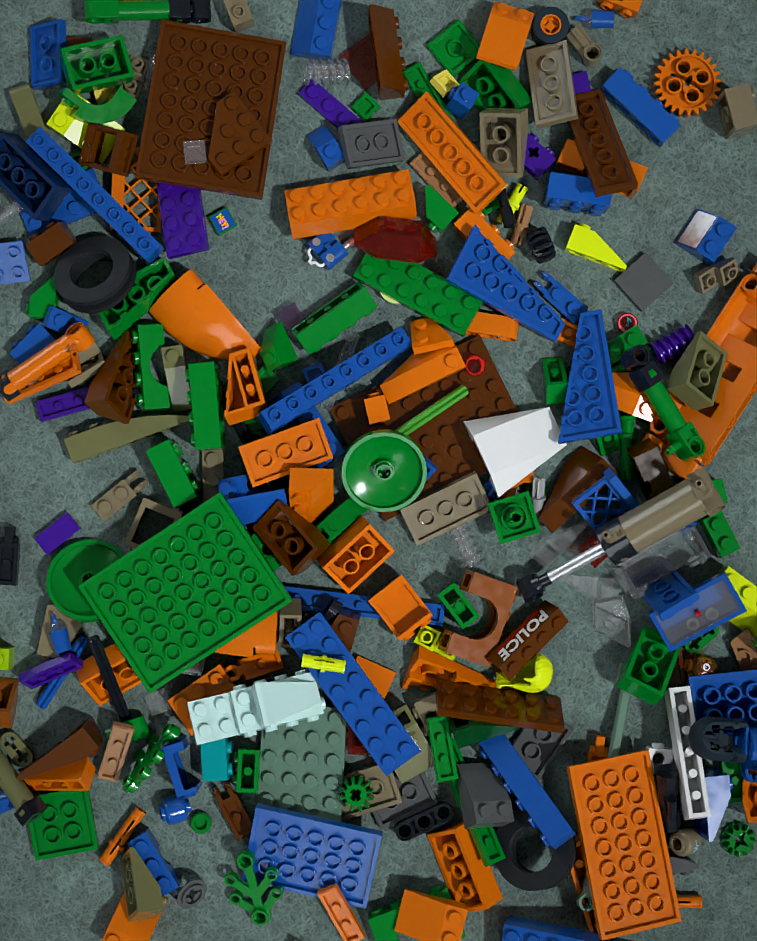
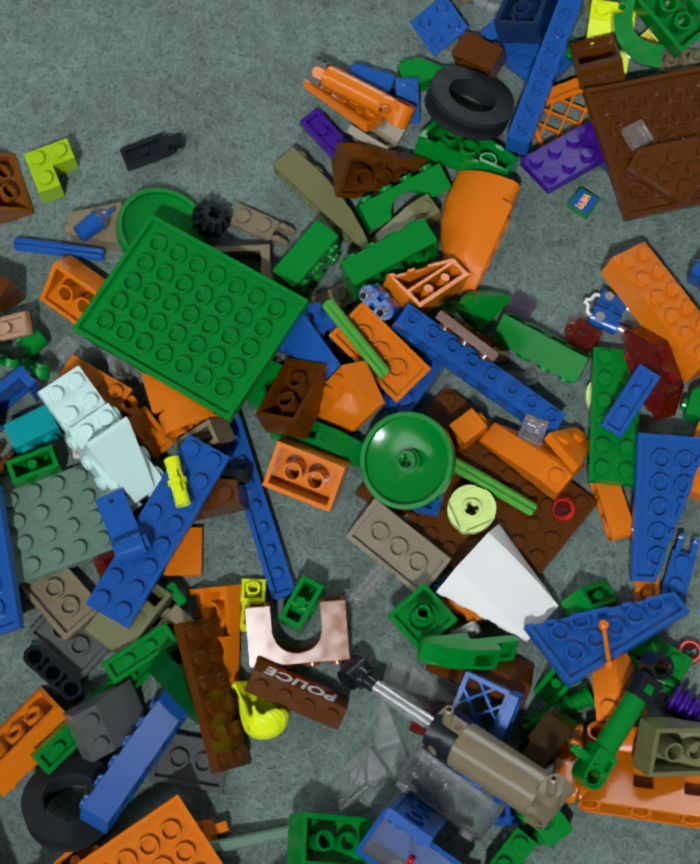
camera: 70 degrees right, 15 degrees down
(50, 670) = (55, 233): dark purple plate -> none
(57, 533) = (195, 185): dark purple tile -> none
(88, 534) = (210, 218): none -> black gear
(109, 678) = (71, 287): black axle -> none
(239, 433) = (380, 301): none -> blue piece
(268, 467) = (356, 338): none -> bright green axle
(317, 366) = (488, 348): none -> reddish brown plate
(341, 722) = (122, 527): none -> blue door
(346, 282) = (585, 343): none -> clear red brick
(364, 795) = (56, 593): green gear -> none
(401, 608) = (272, 545): orange panel -> none
(403, 359) = (533, 429): none -> clear plate
(405, 698) = (177, 595): none -> green tile
(417, 272) = (630, 401): none -> blue tile
(451, 446) = (469, 523): none -> yellowish green plate
(557, 499) = (463, 653): none -> green slope
(585, 382) = (603, 626): none -> orange hinge

